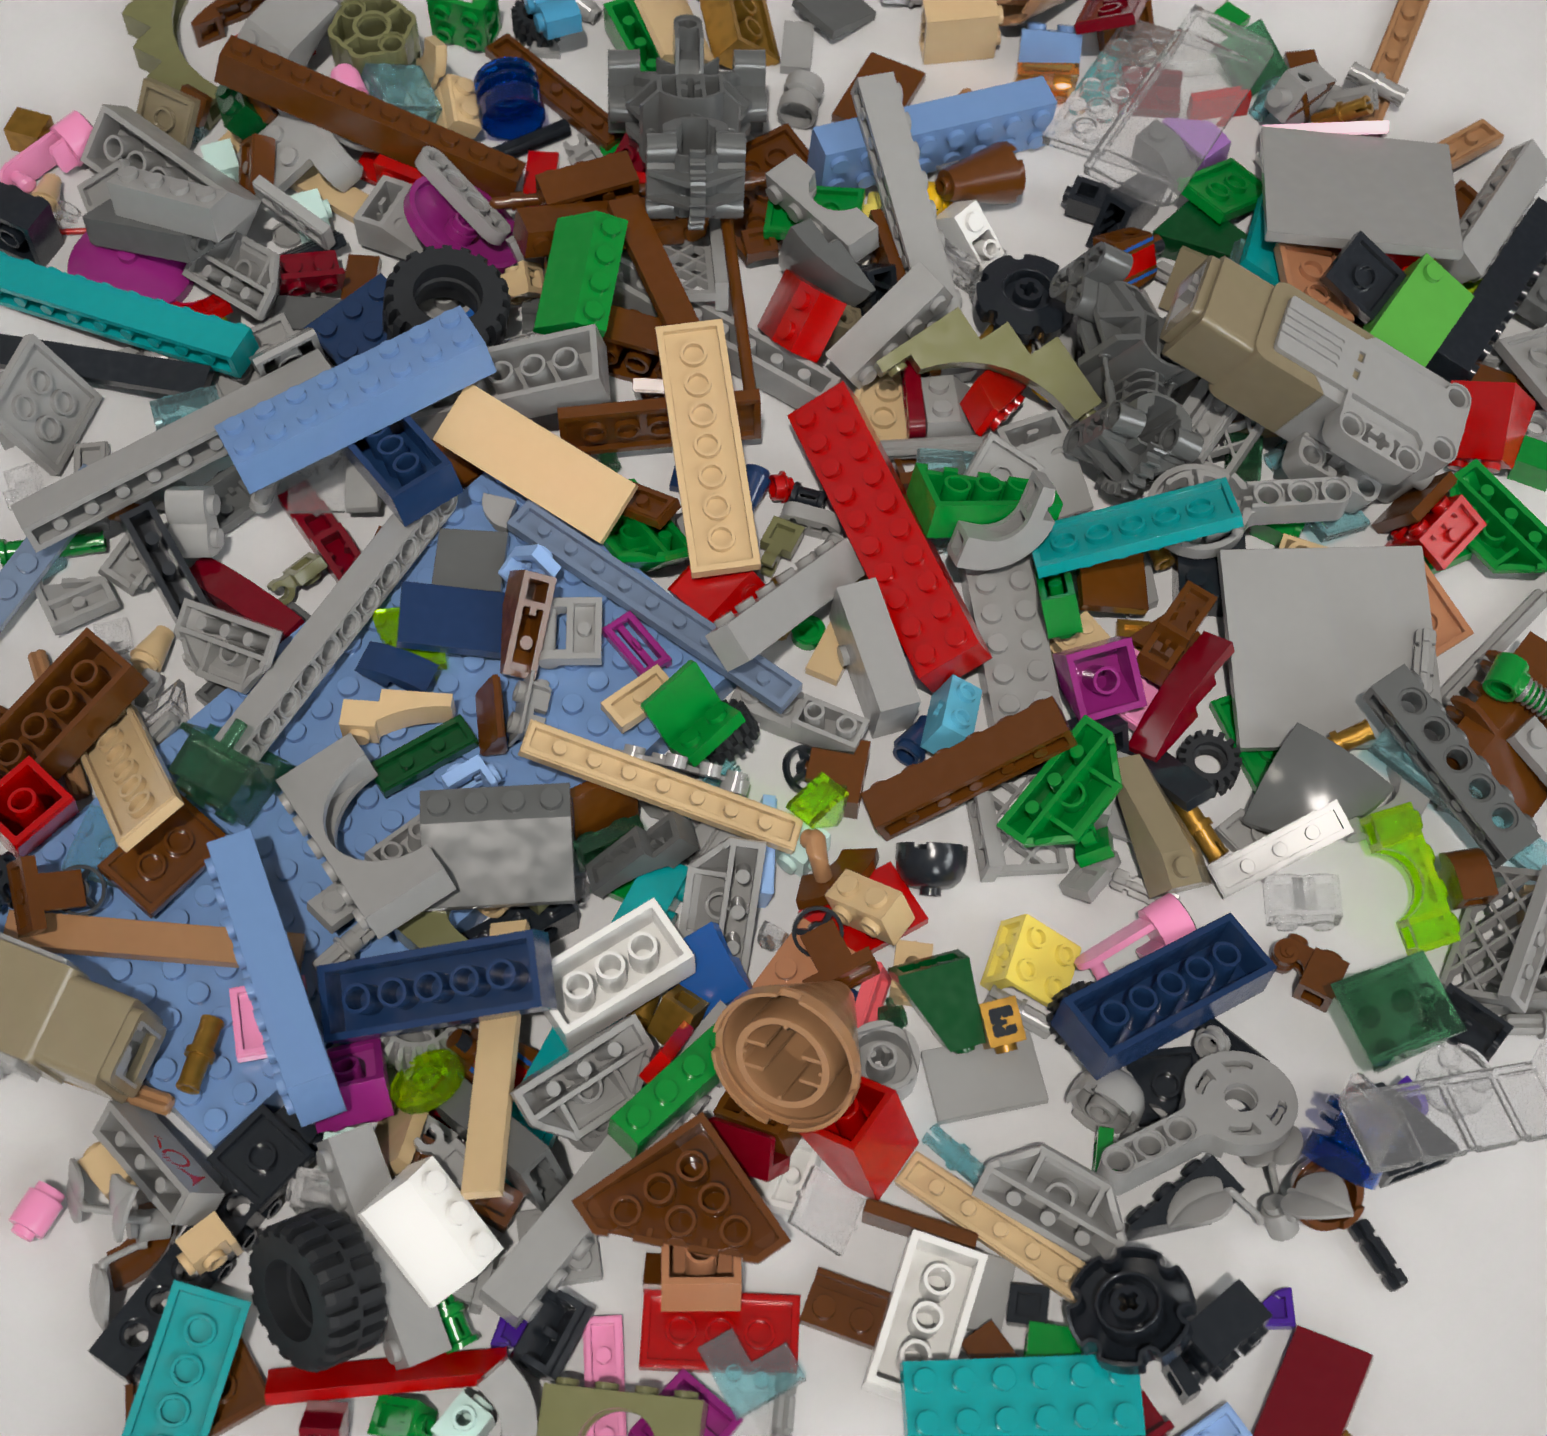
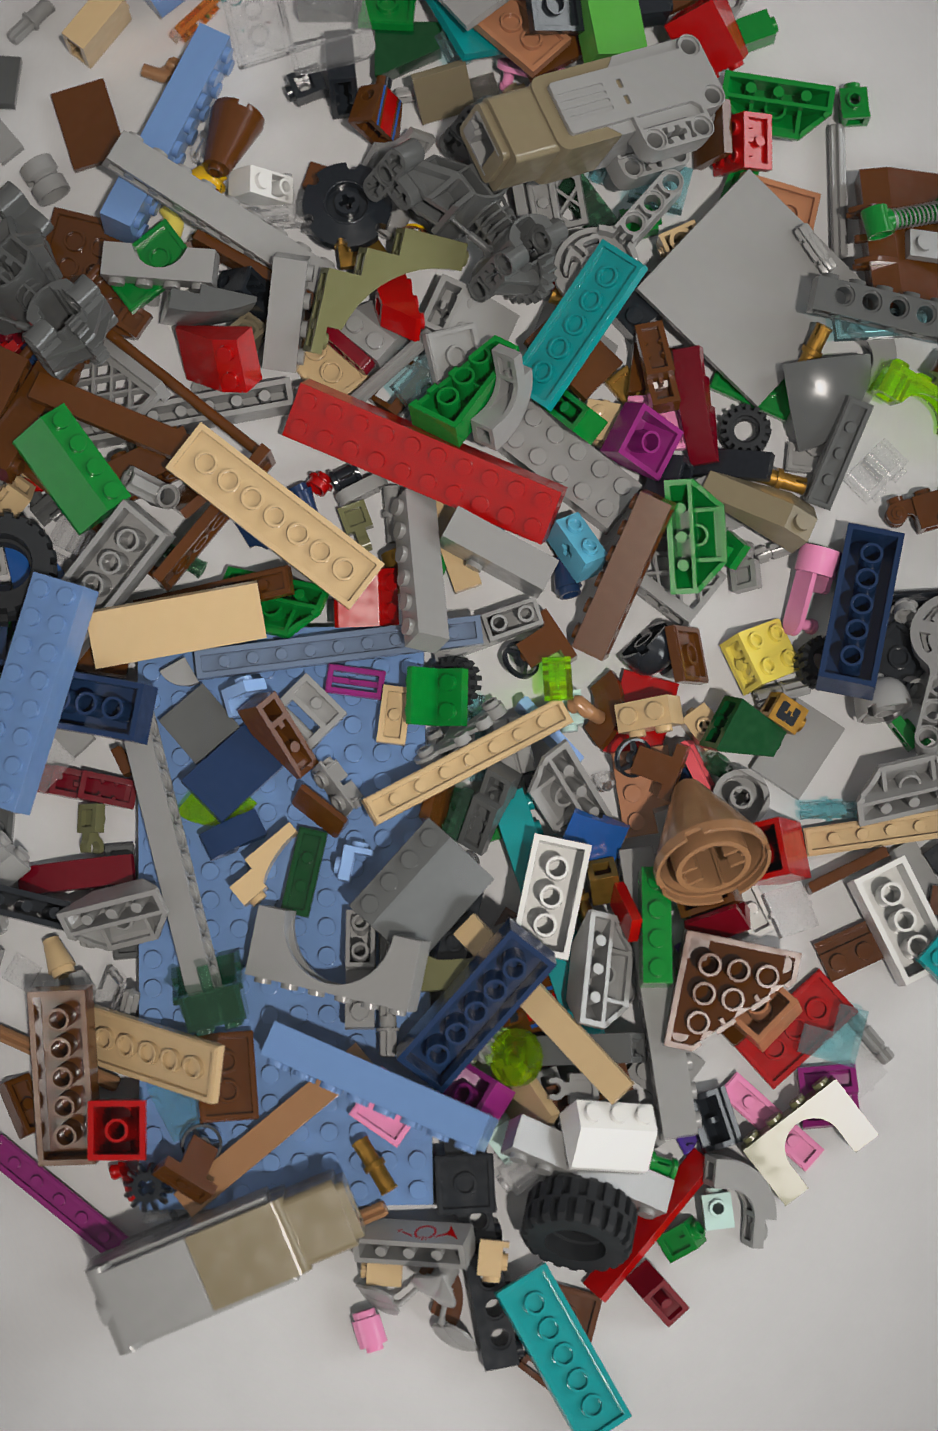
camera: 40 degrees left, 20 degrees up
(628, 345) = (149, 488): none -> light grey piece
(959, 893) = (686, 655): none -> reddish brown tile

